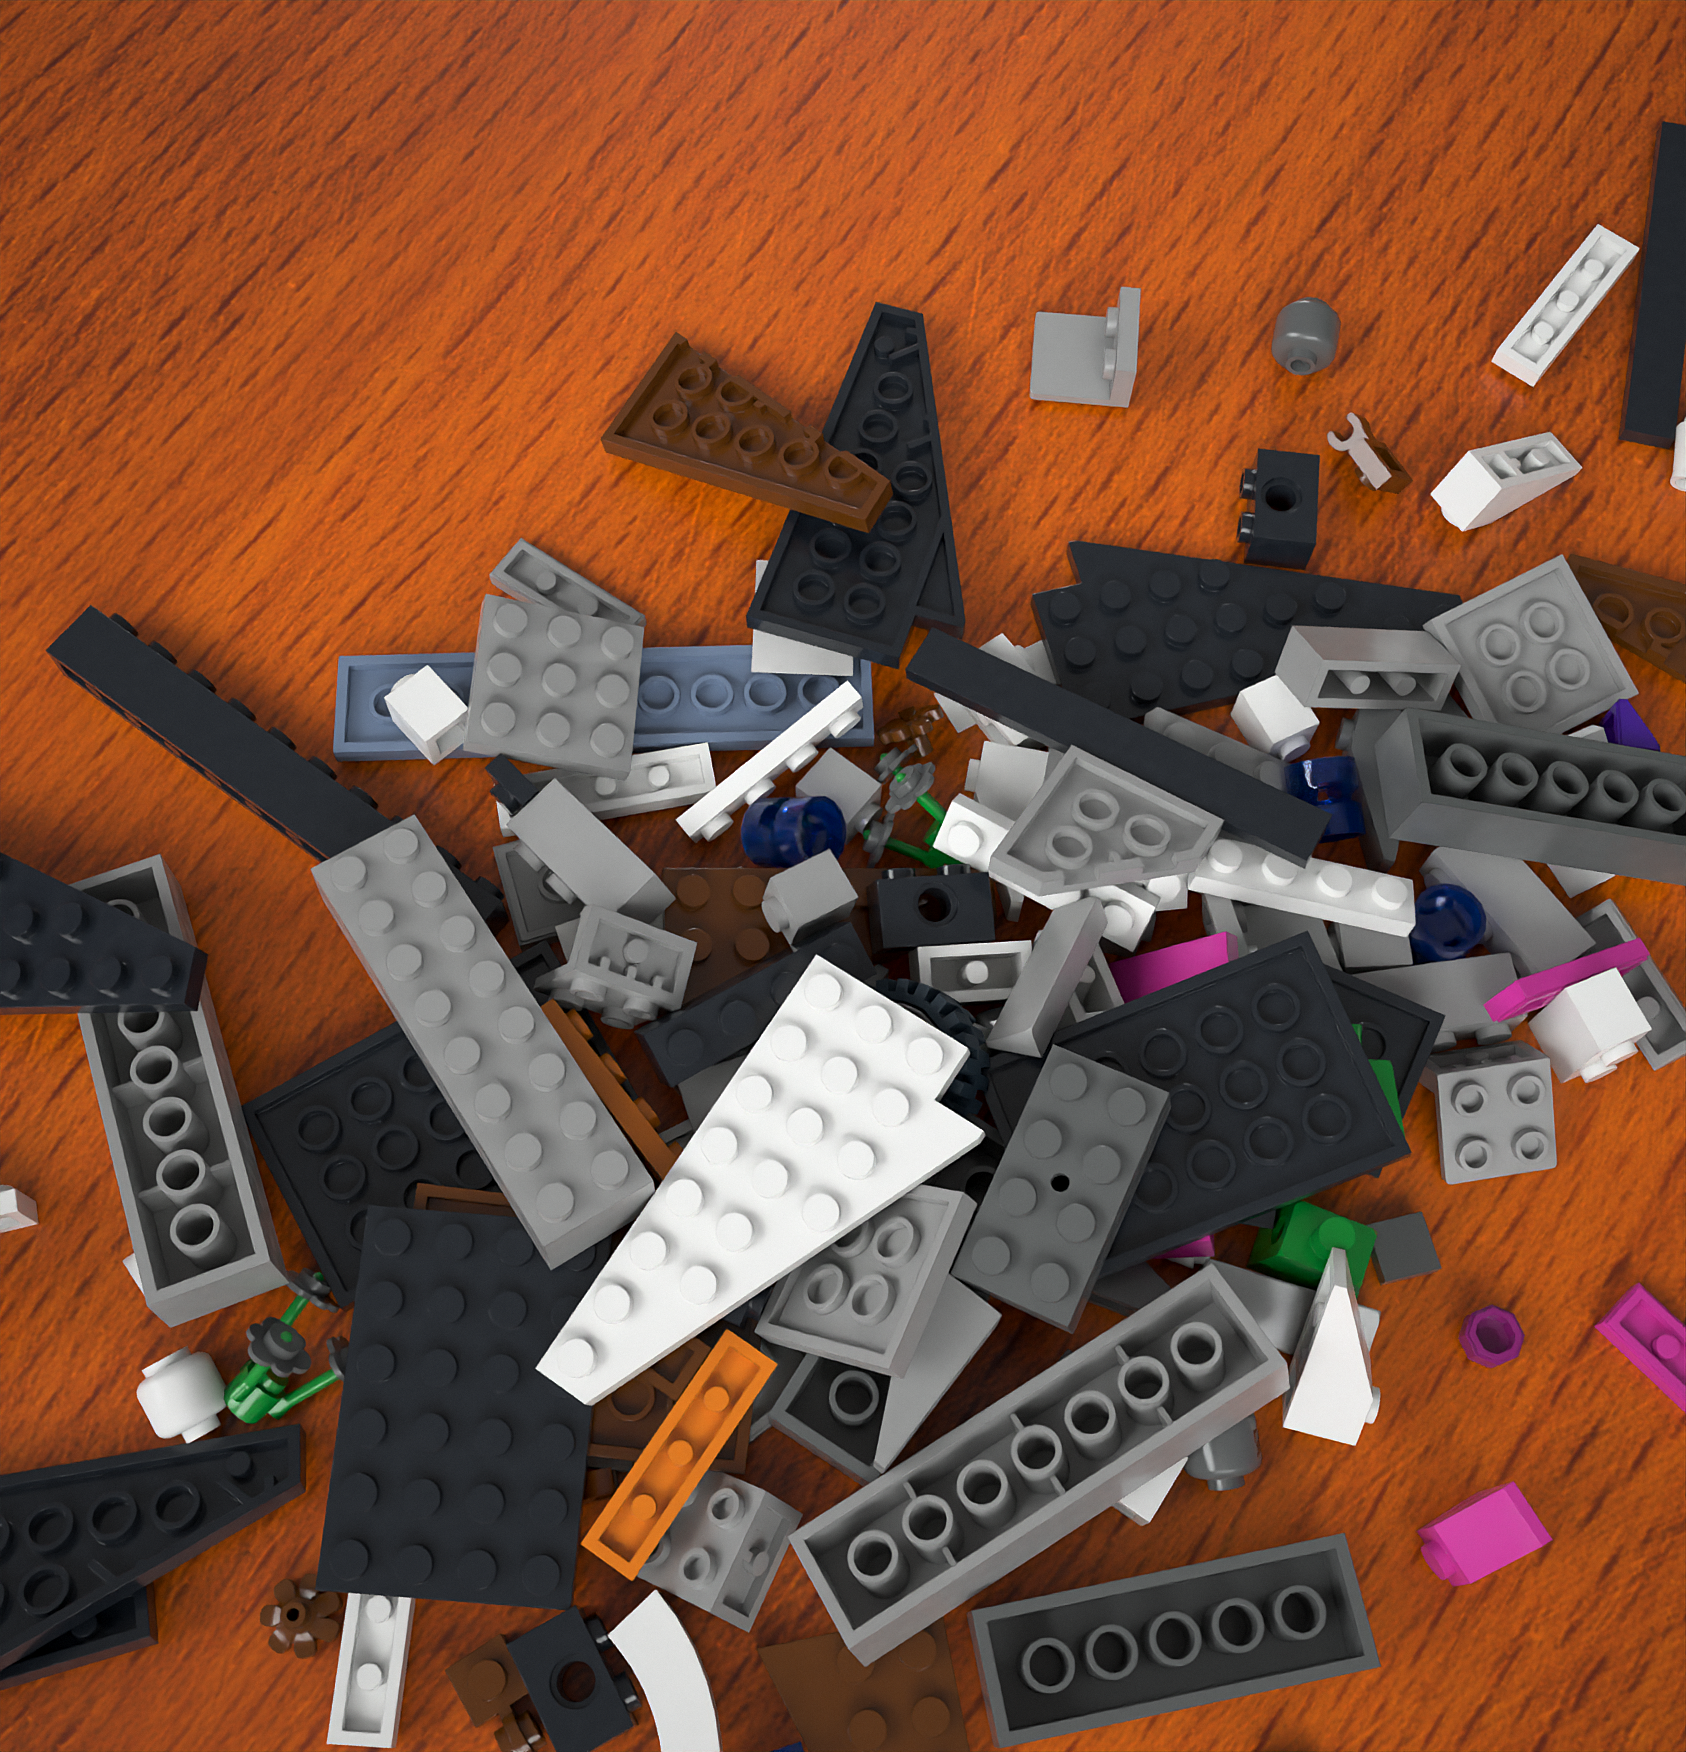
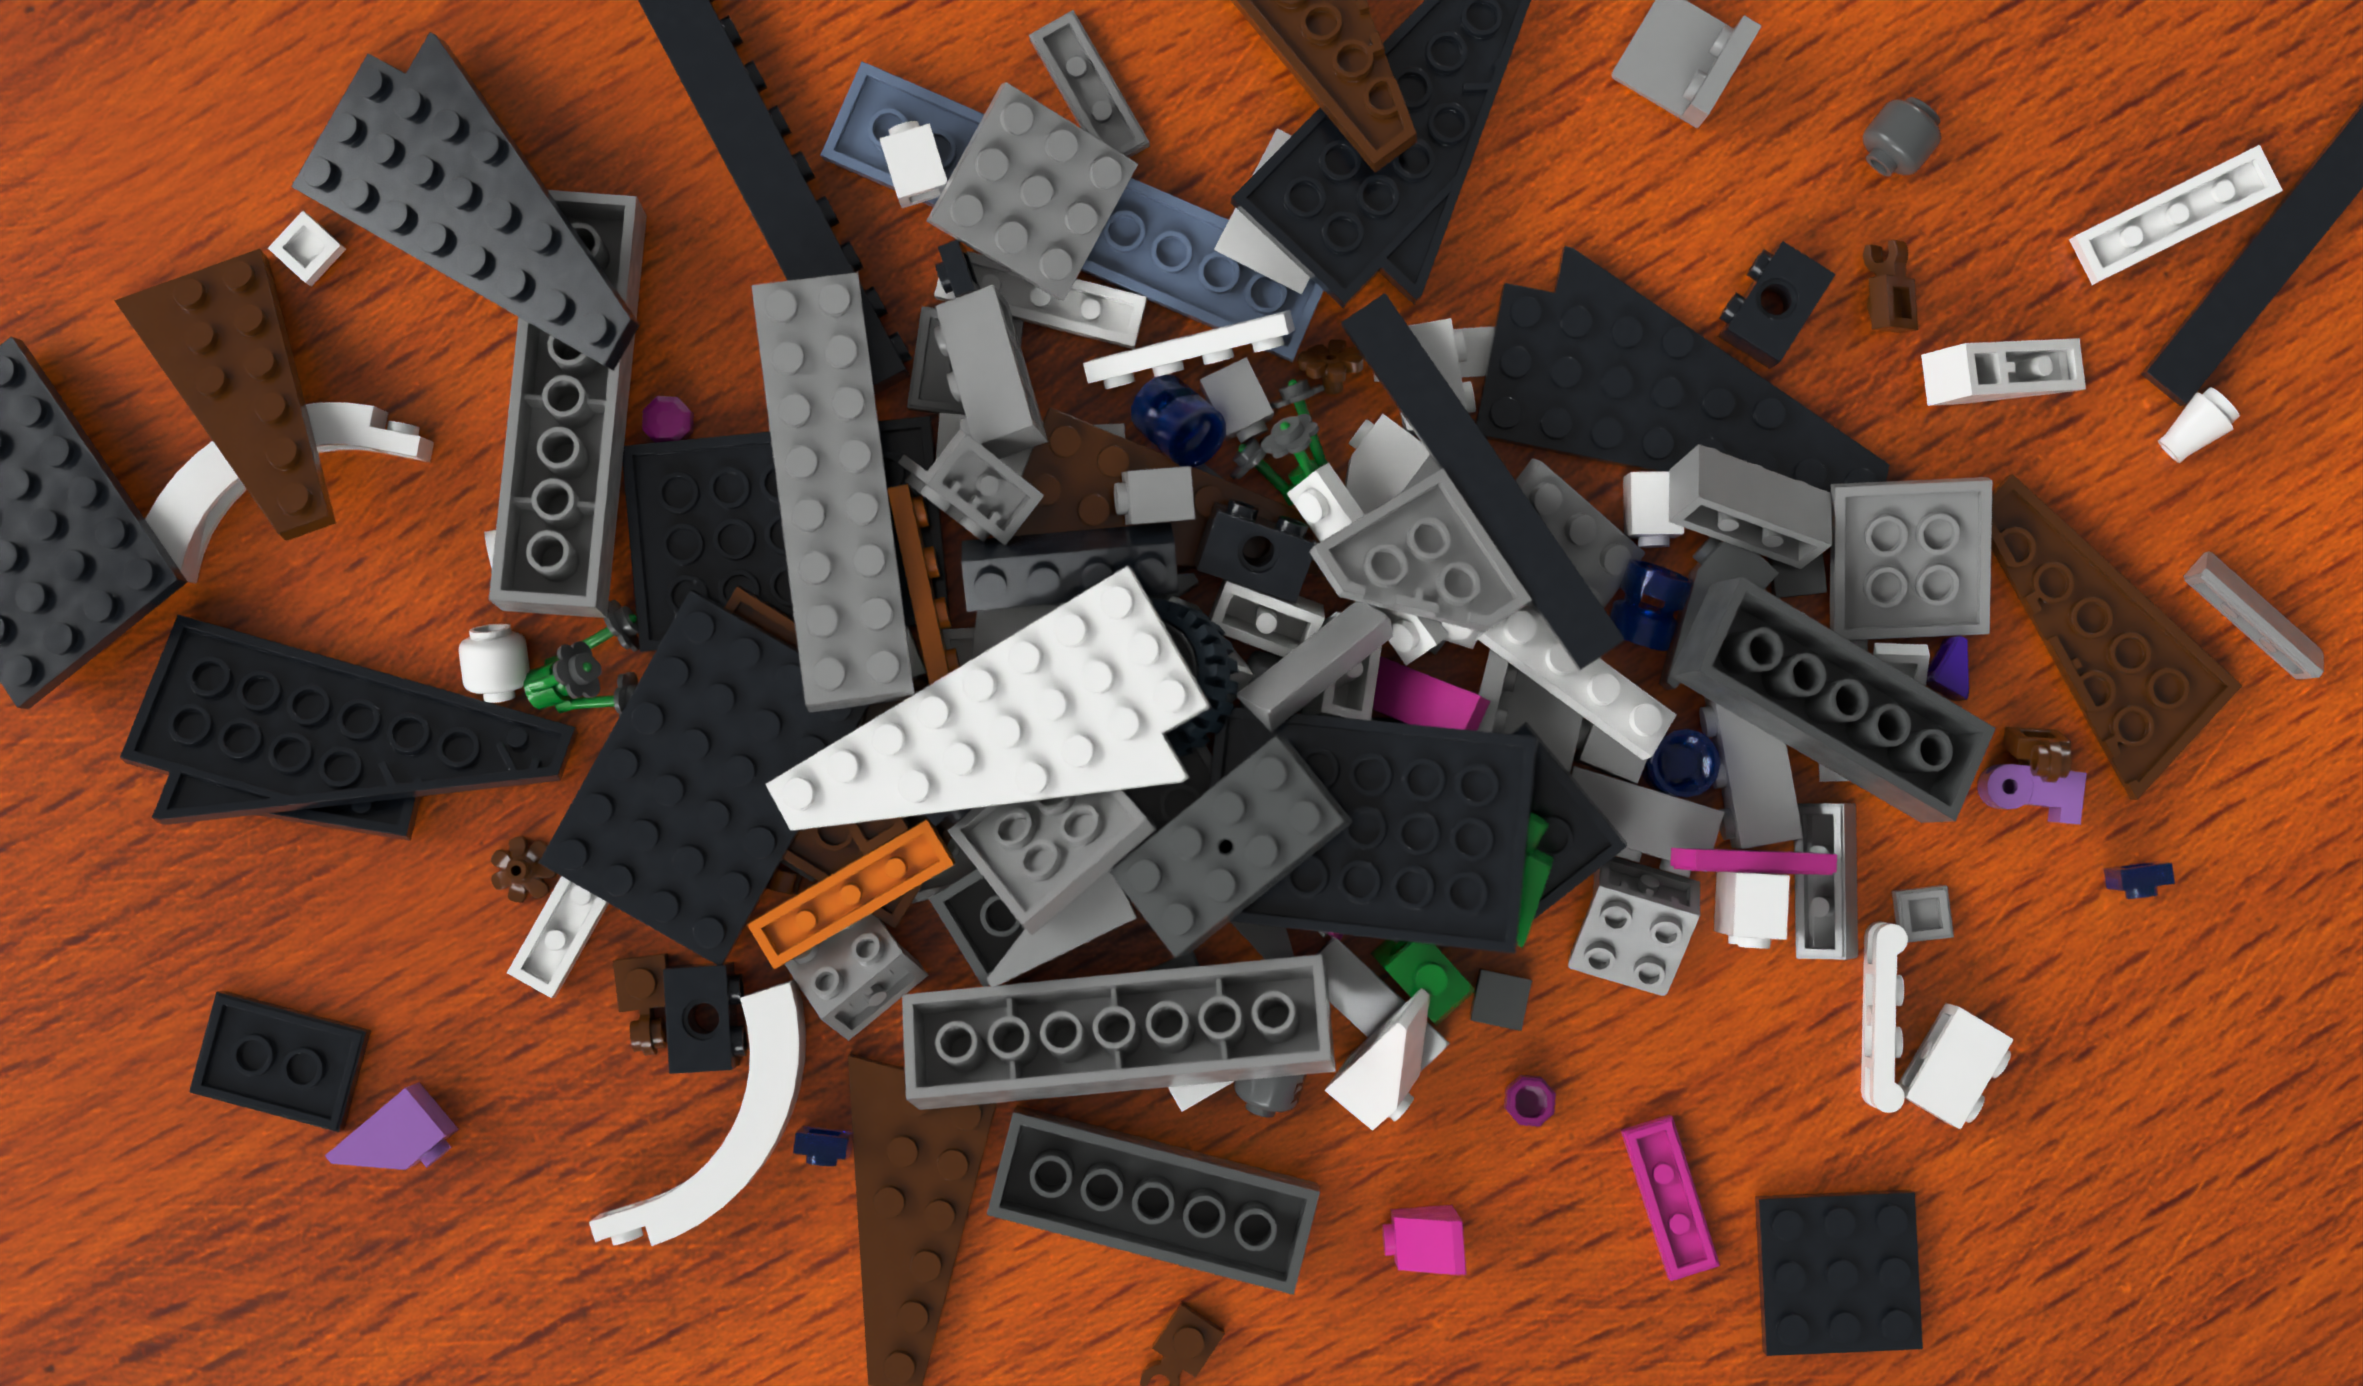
camera: 30 degrees right, 20 degrees up
(276, 1063) = (667, 420): none -> magenta tile

